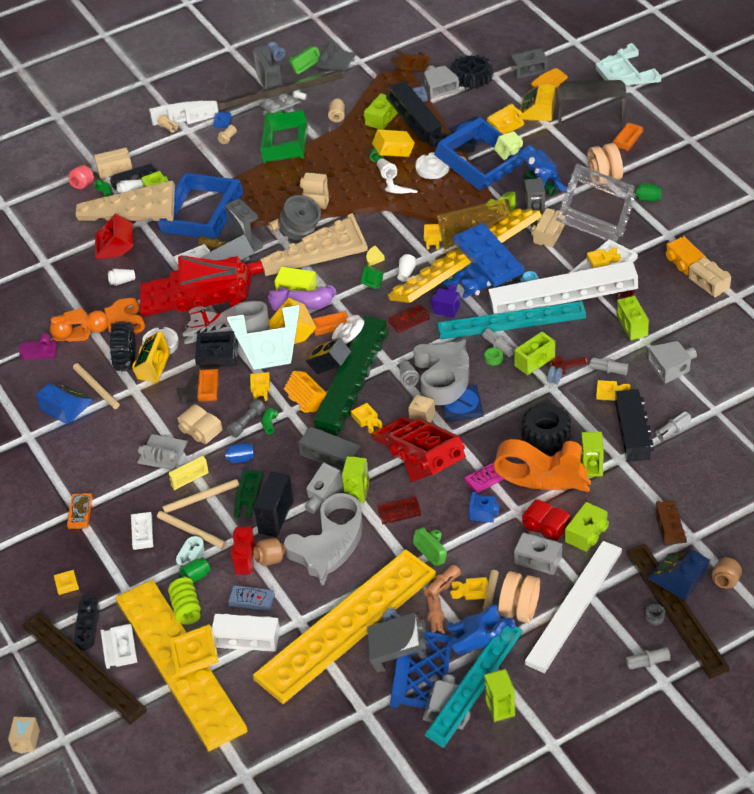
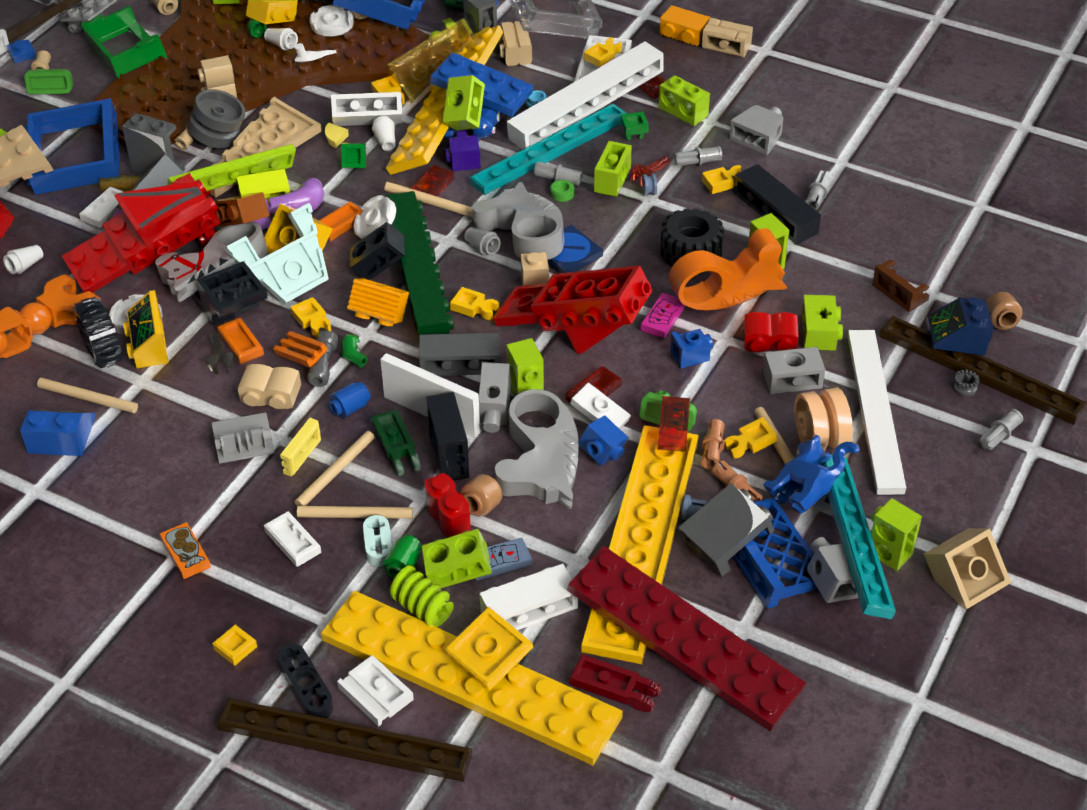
camera: 35 degrees left, 0 degrees up
(220, 150) = (48, 81): none -> bright green piece
(220, 586) = (456, 559): none -> lime brick
(233, 400) = (304, 346): none -> orange tile
(255, 707) = (614, 683): none -> dark red hinge
(261, 291) = (241, 209): none -> dark orange slope
(281, 464) = (410, 386): none -> white tile
(306, 262) = (227, 172): none -> lime tile
(317, 701) = (687, 638): none -> dark red plate
(369, 548) = (603, 440): none -> blue brick
(388, 526) = (596, 404): none -> white plate
(392, 326) = (432, 200): none -> tan bar
(403, 244) = (365, 108): none -> white brick
(420, 556) = (673, 423): none -> clear red tile
(460, 265) = (463, 102): none -> lime brick
(537, 741) = (968, 566): none -> tan slope
(580, 324) = (634, 124): none -> green tile

